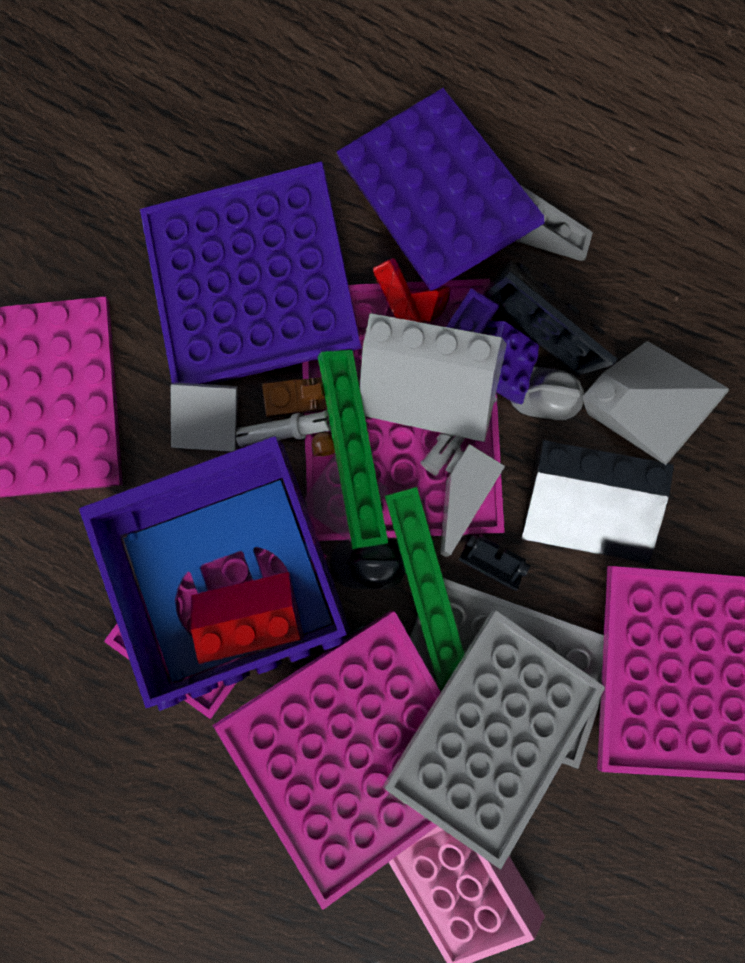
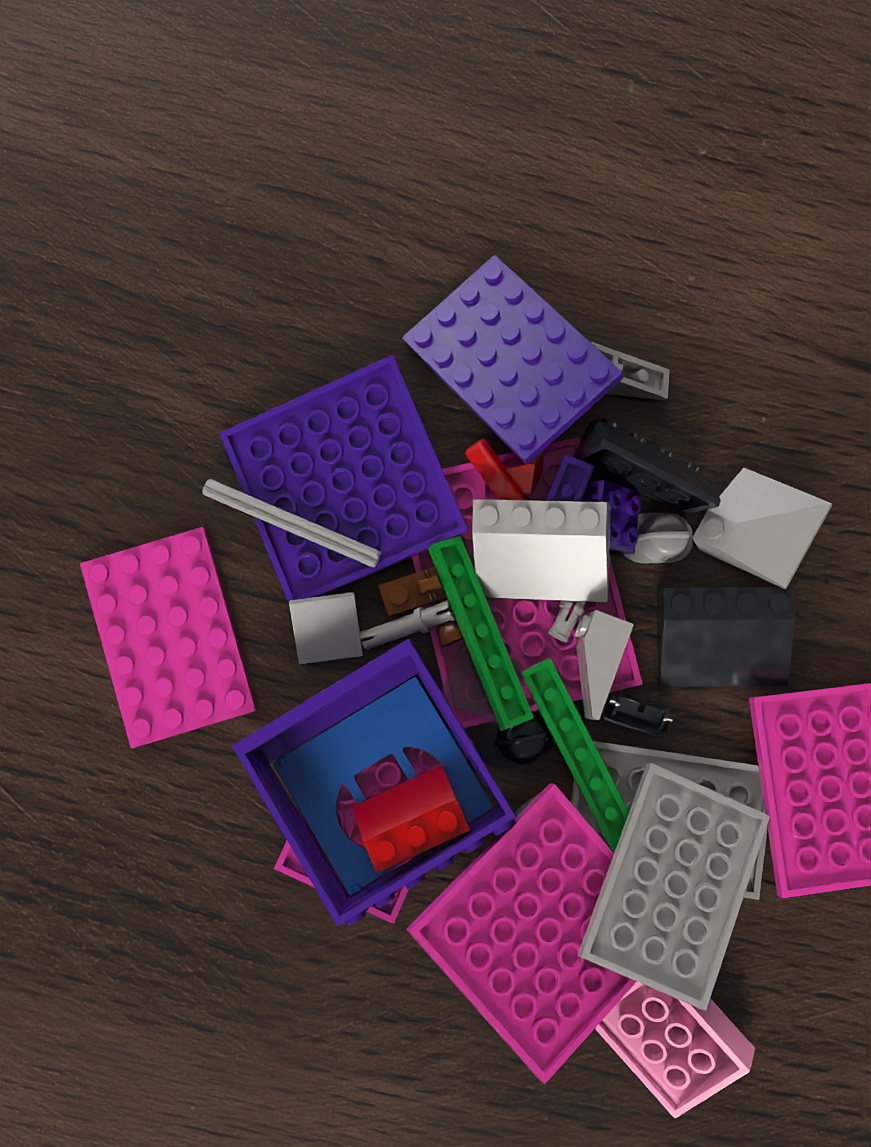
camera: 15 degrees left, 0 degrees up
(190, 307) = (291, 523): none -> light grey axle

